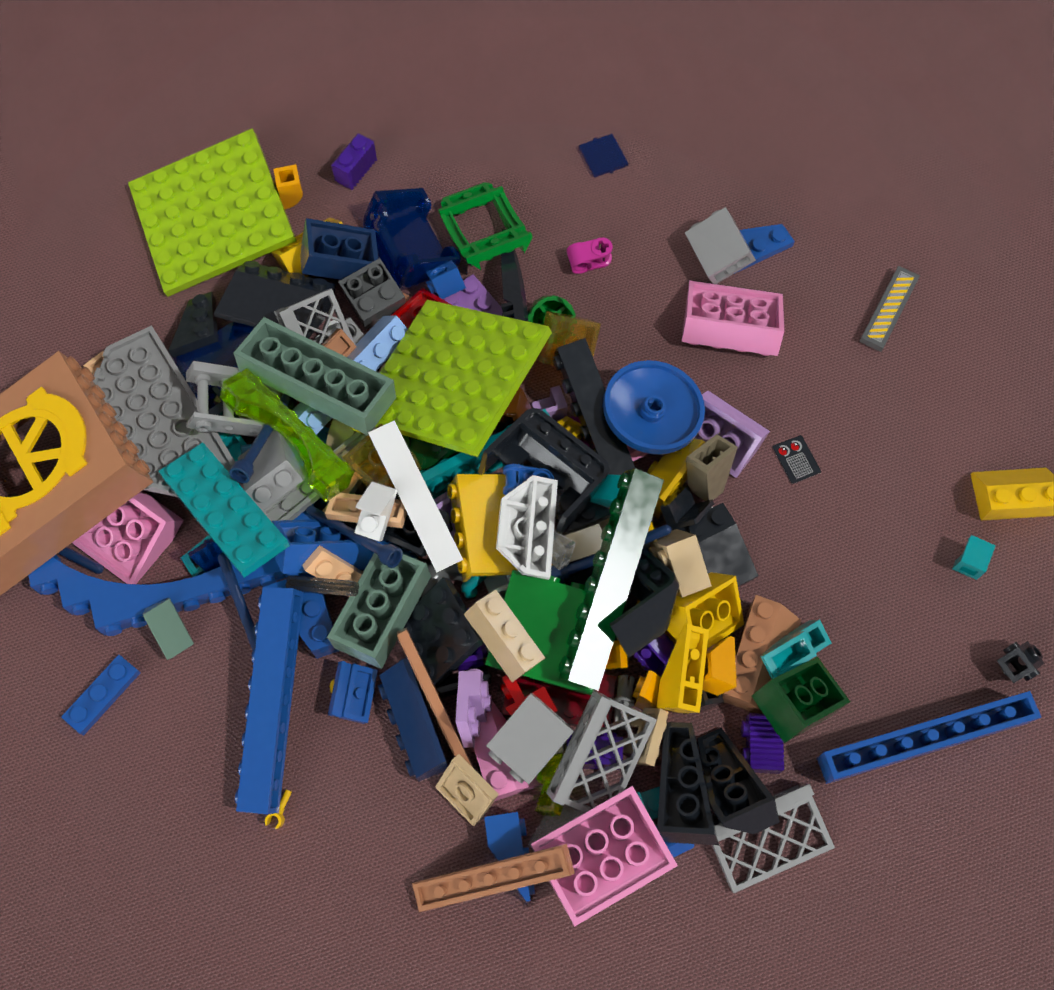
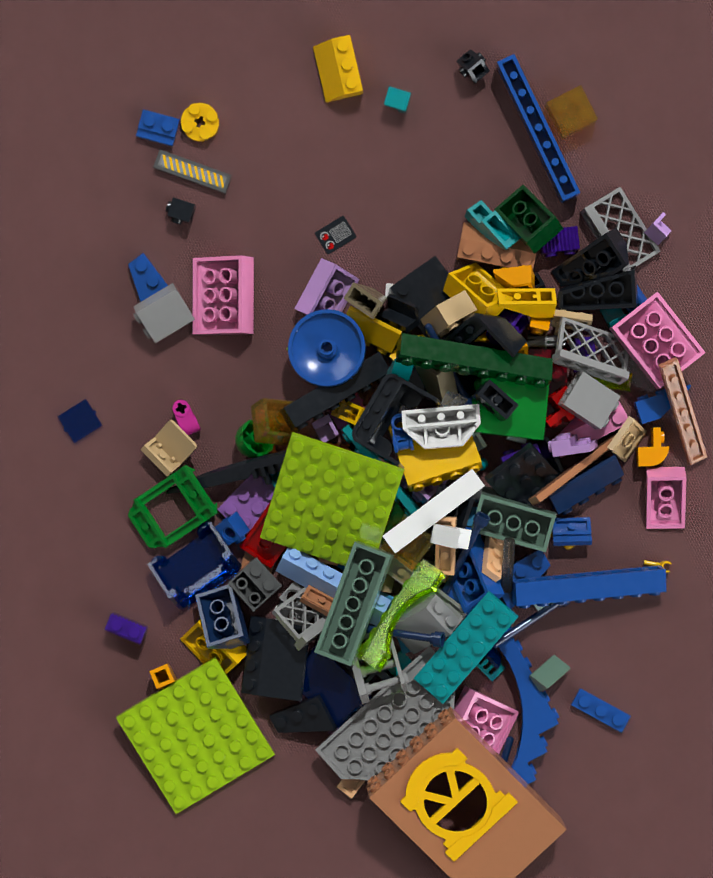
camera: 100 degrees left, 20 degrees up
(373, 836) = (665, 497): none -> bright pink slope
(437, 828) = (655, 454): none -> light orange brick
(504, 635) = (526, 429): tan brick -> none
(551, 596) = (495, 400): none -> black brick
(553, 229) = (169, 448): none -> tan bracket
(767, 892) = (658, 230): none -> lavender panel
(841, 286) = (180, 211): none -> black brick
(945, 279) = (157, 127): none -> blue plate
(949, 791) = (571, 112): none -> clear yellow brick
(959, 315) = (205, 131): none -> yellow plate

